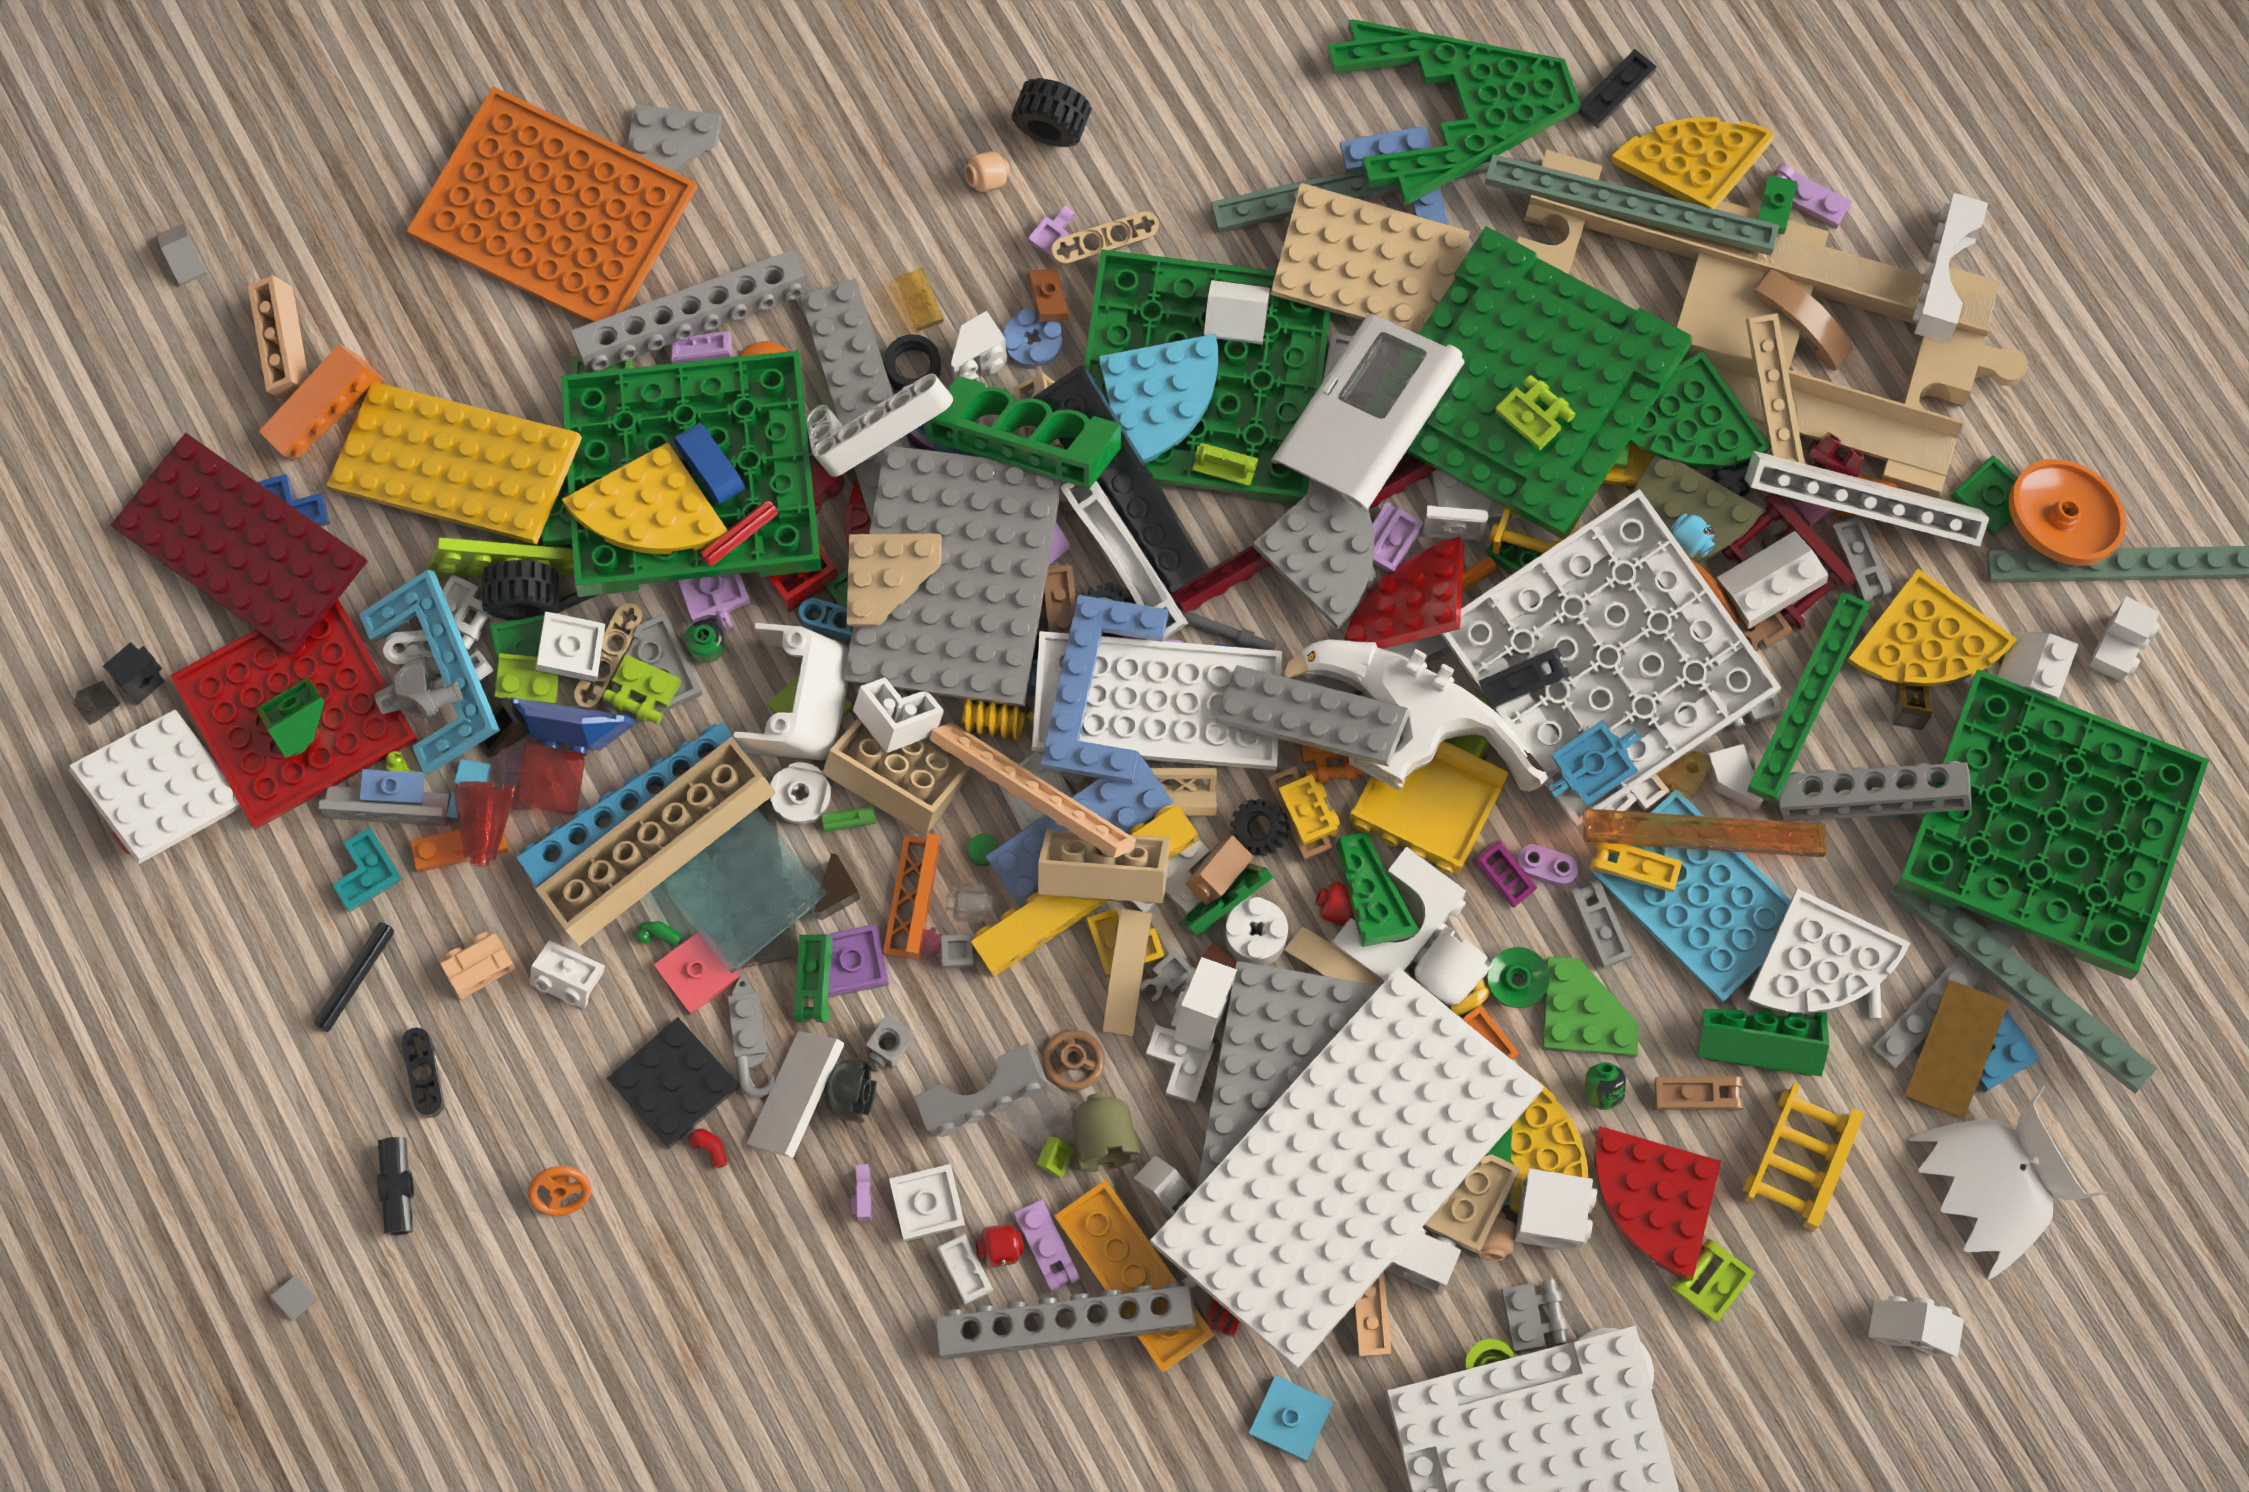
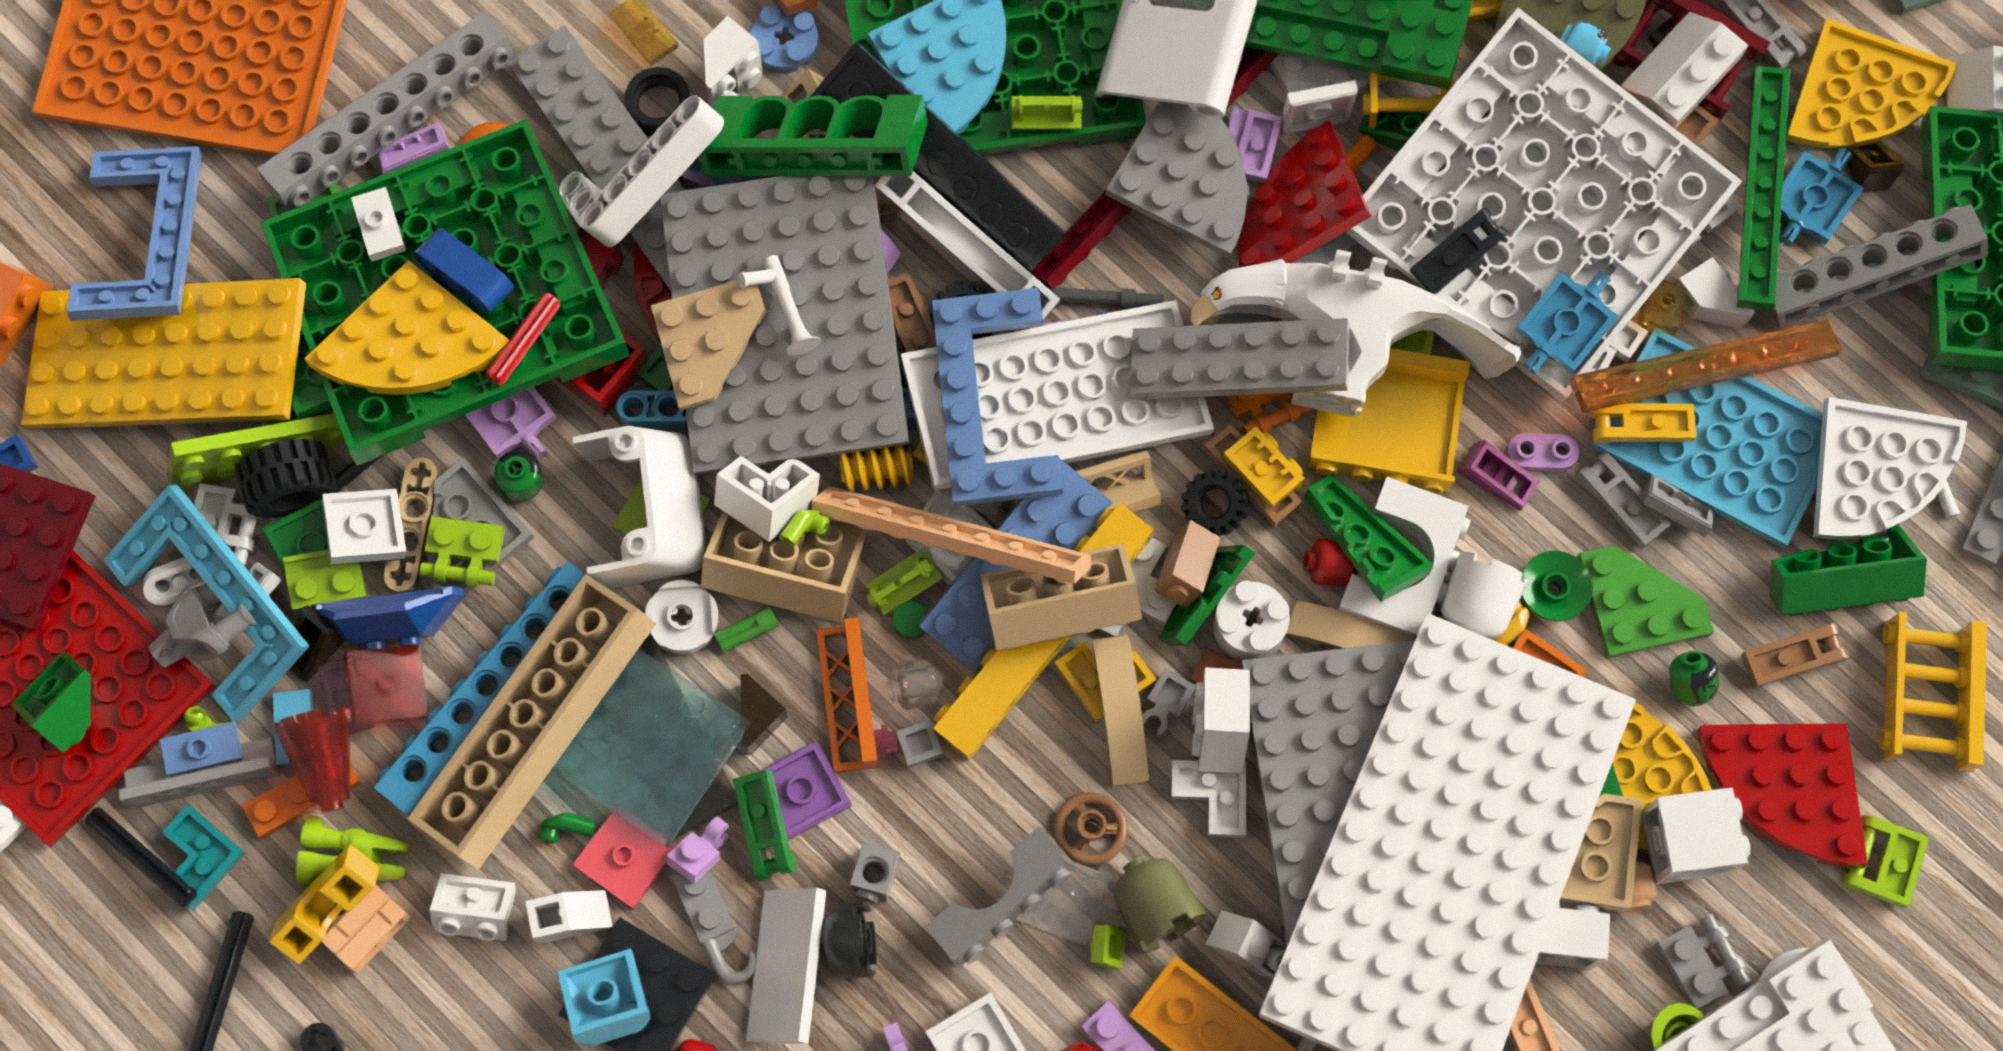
camera: 20 degrees left, 0 degrees up
(321, 857) = (141, 857): none -> black axle
(462, 928) = (310, 915): none -> yellow arch
(465, 412) = (162, 289): none -> medium blue plate
(492, 907) = (372, 845): none -> lime piece
(637, 1003) = (568, 915): none -> white slope
(645, 1075) = (604, 998): none -> medium azure slope
(653, 405) = (378, 224): none -> white plate
(753, 986) = (697, 854): none -> lavender plate
(919, 745) = (803, 522): none -> lime arm
(960, 597) = (800, 339): none -> white piece
(985, 817) = (903, 581): none -> lime hinge
(1642, 942) = (1677, 505): none -> light grey plate
(1854, 718) = (1817, 197): none -> dark azure plate

